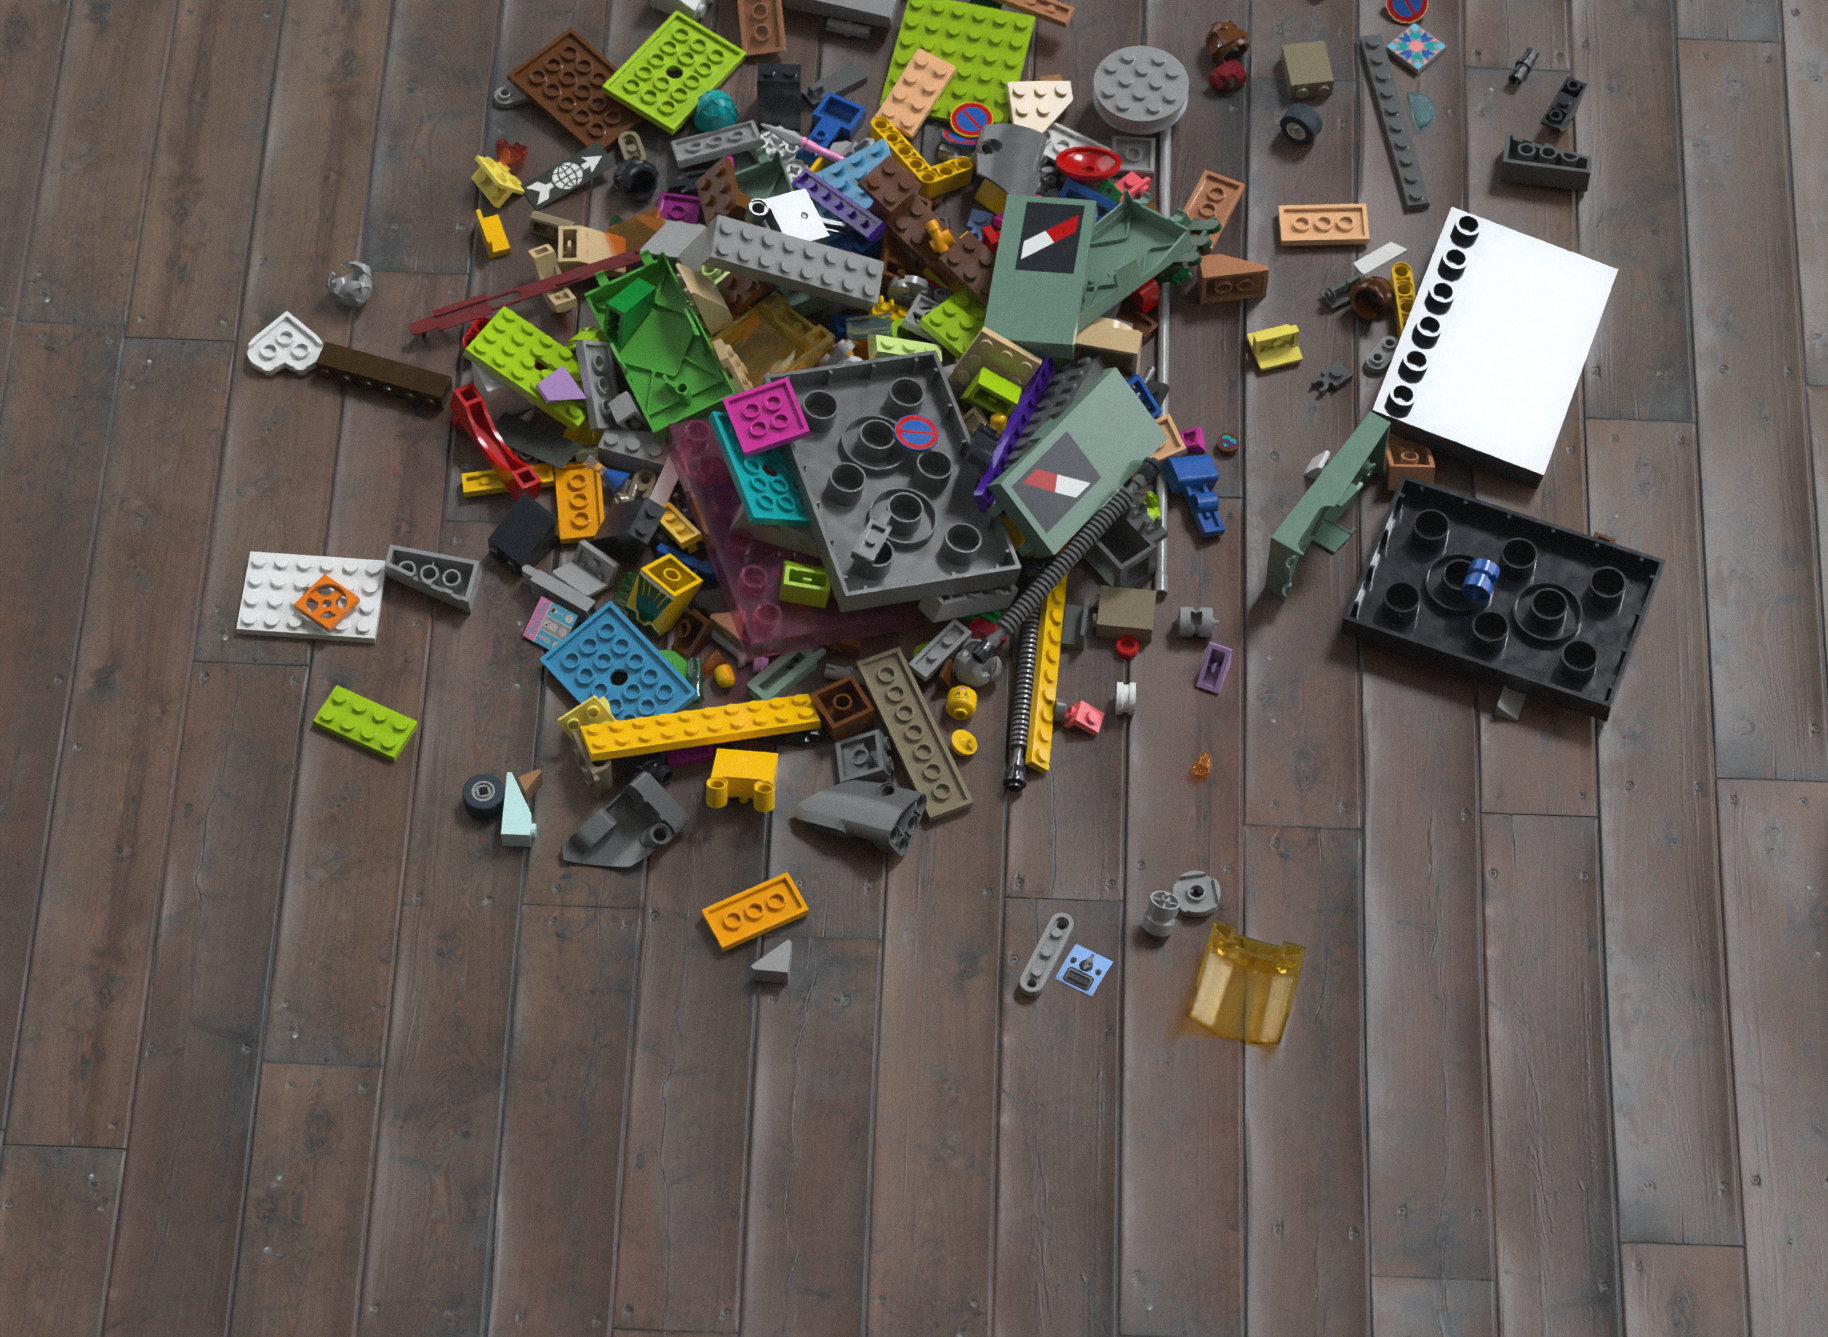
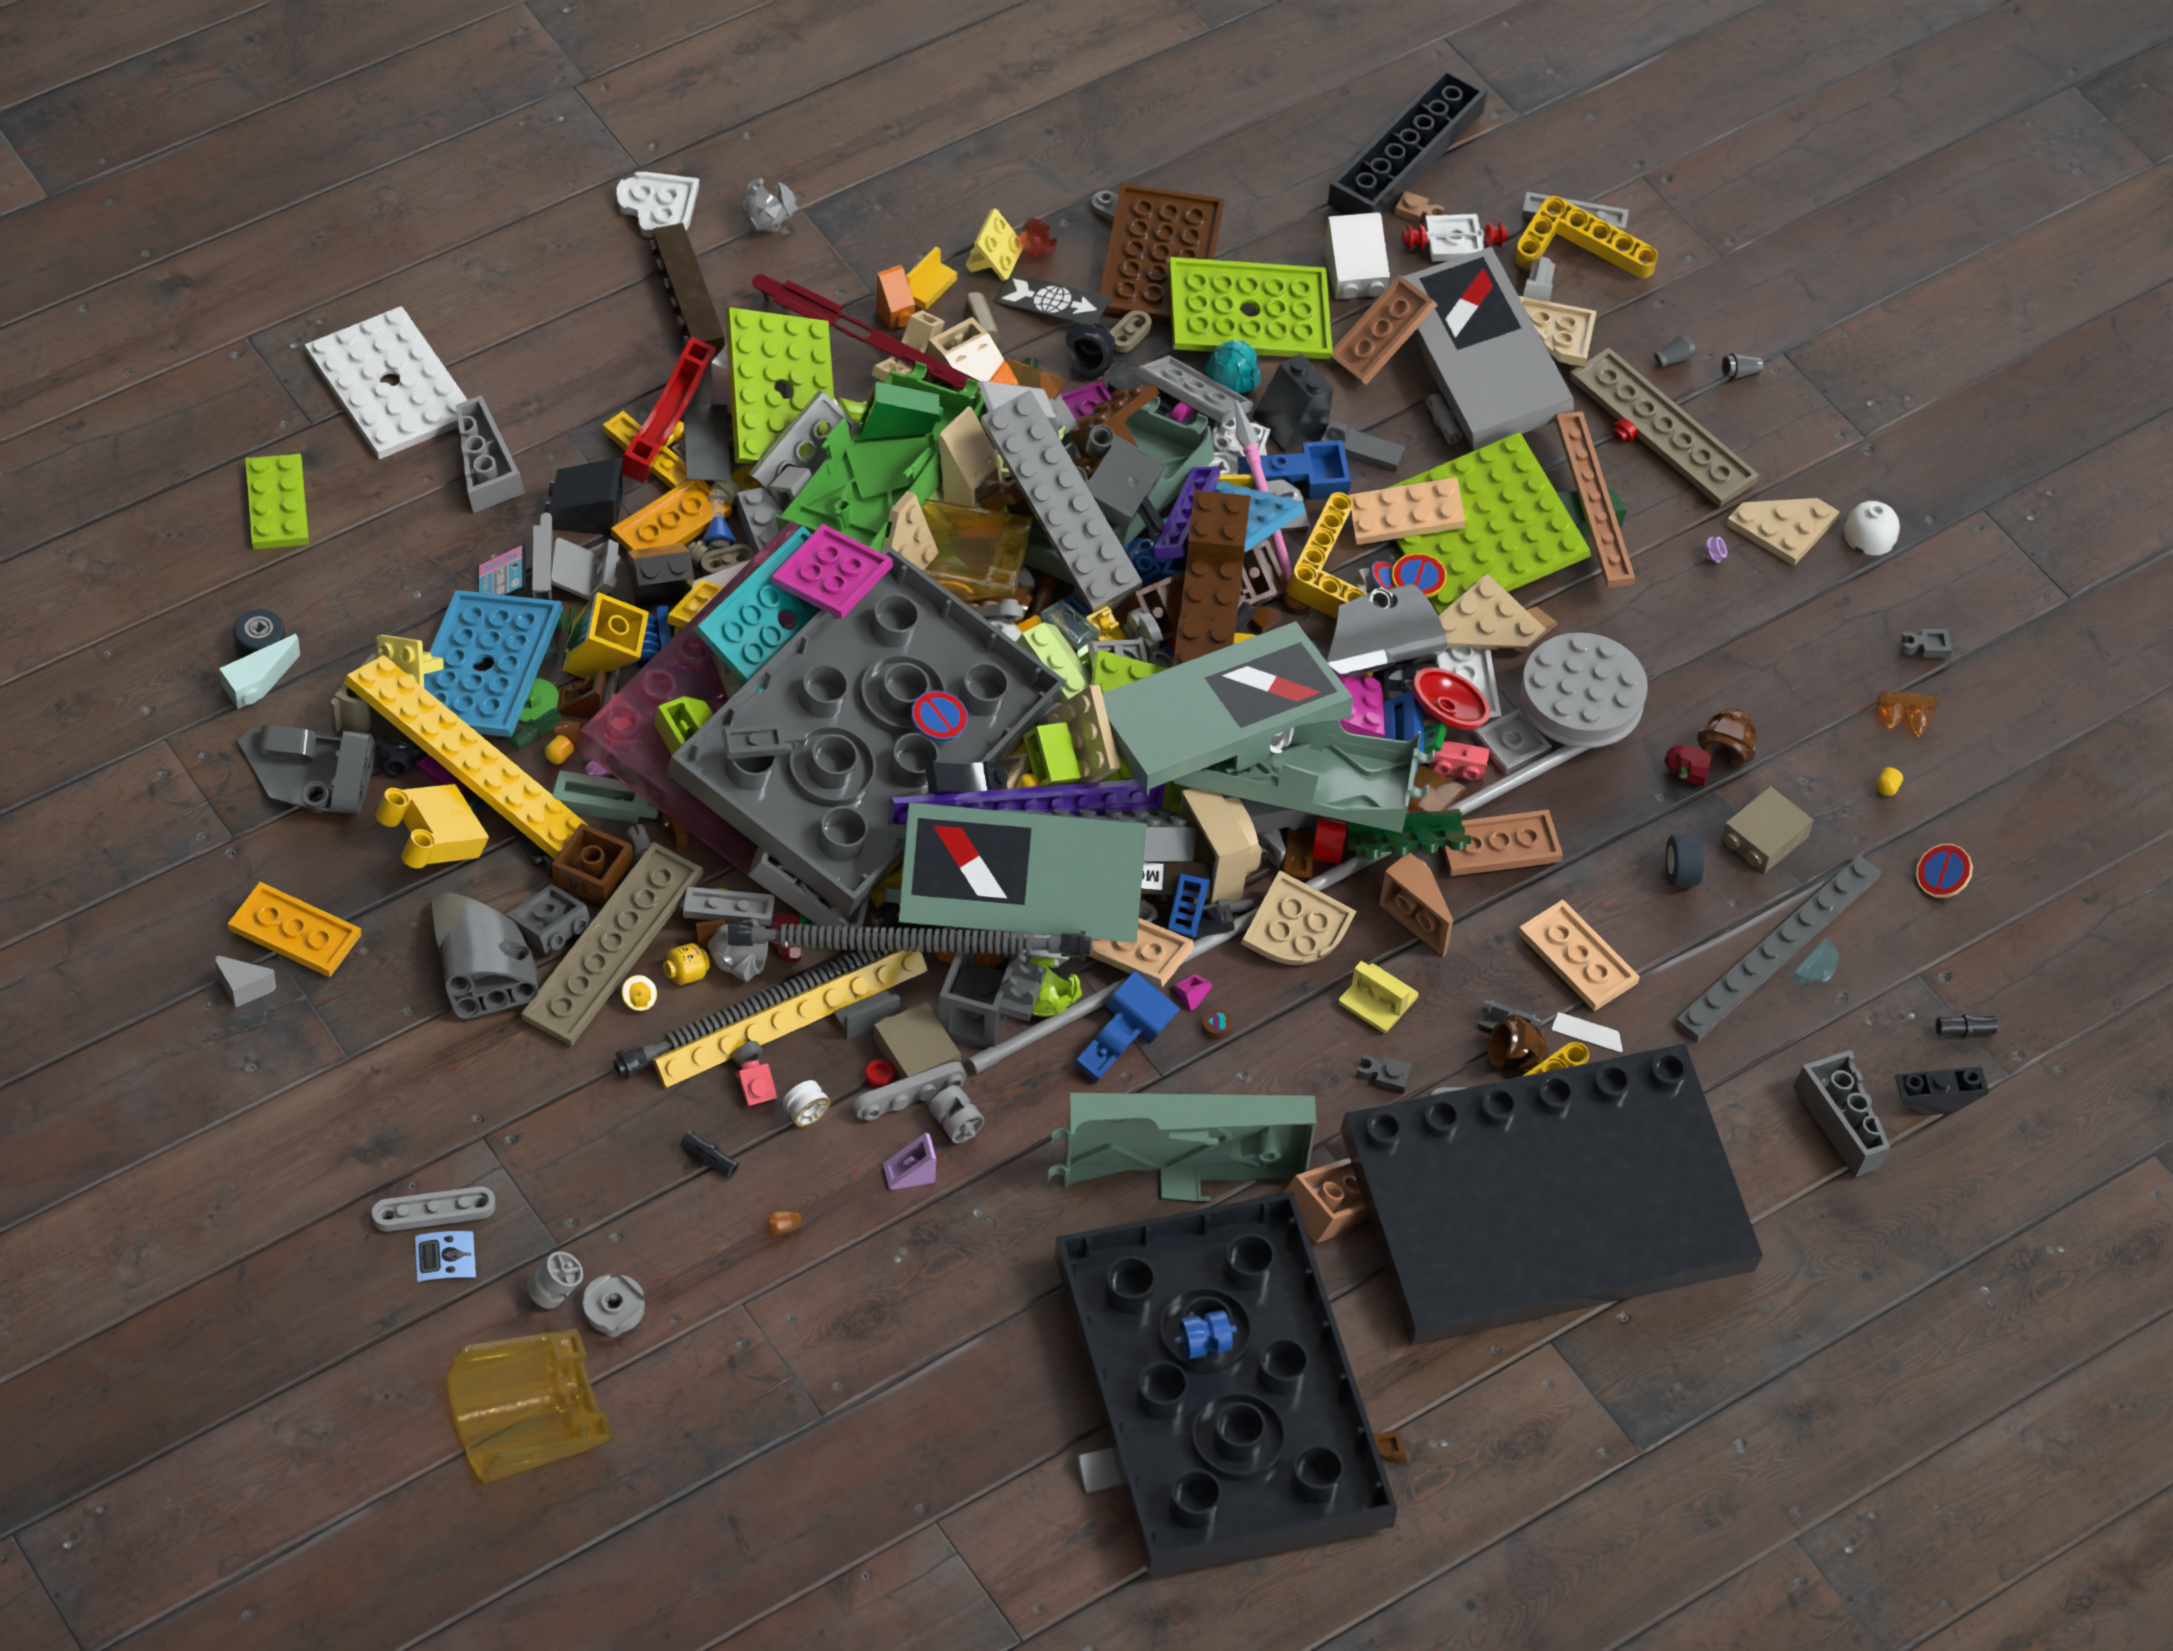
camera: 50 degrees right, 5 degrees down
(313, 594) = (381, 408): orange piece -> none
(498, 262) = (894, 297): none -> orange slope
(530, 783) = (303, 664): medium nougat slope -> none
(559, 387) = (764, 413): lavender slope -> none
(940, 240) = (1209, 604): light orange plate -> none
(1134, 771) = (724, 1164): none -> black pin
(1156, 645) = (908, 1091): none -> light grey plate
(1189, 353) = (1297, 923): none -> tan plate
(1416, 48) = (1895, 914): tile -> none

